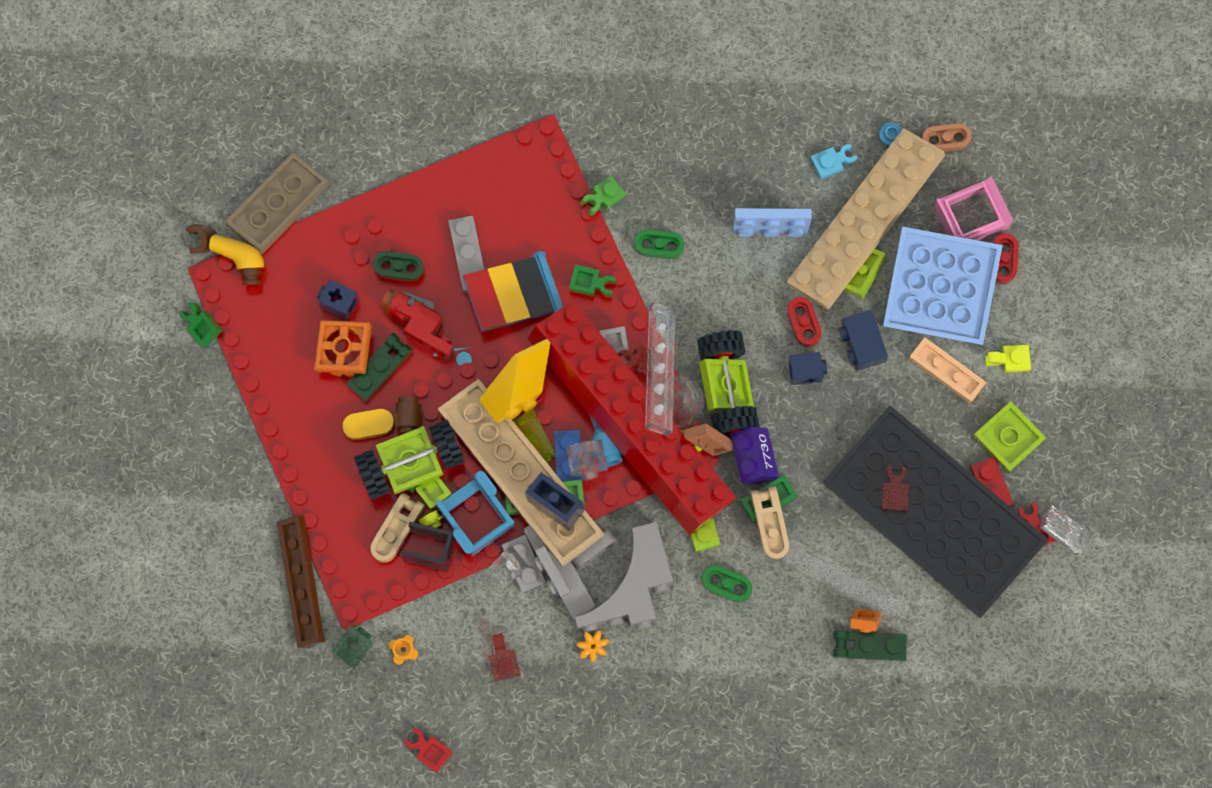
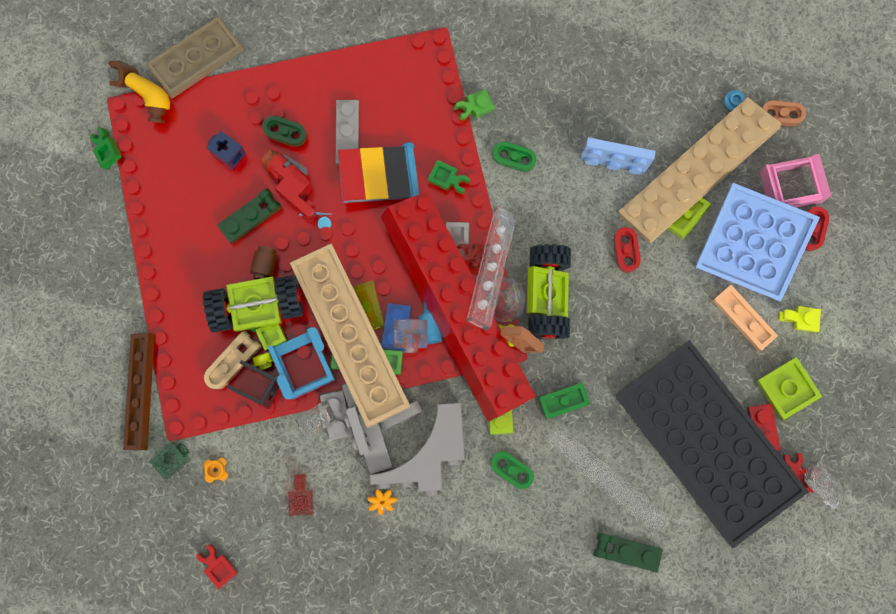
camera: 10 degrees right, 5 degrees up
(358, 366) = (210, 173): orange piece -> none
(368, 424) = (228, 264): yellow tile -> none
(517, 383) = (362, 255): yellow slope -> none
(554, 501) = (371, 369): dark blue brick -> none
(754, 455) = (559, 360): dark purple brick -> none
(770, 523) = (562, 424): tan plate -> none
(807, 368) = (621, 291): dark blue brick -> none
(829, 162) = (677, 115): medium azure plate -> none
(863, 340) = (676, 276): dark blue brick -> none
(865, 620) = (629, 529): orange plate -> none
(895, 493) = (678, 421): clear red plate -> none

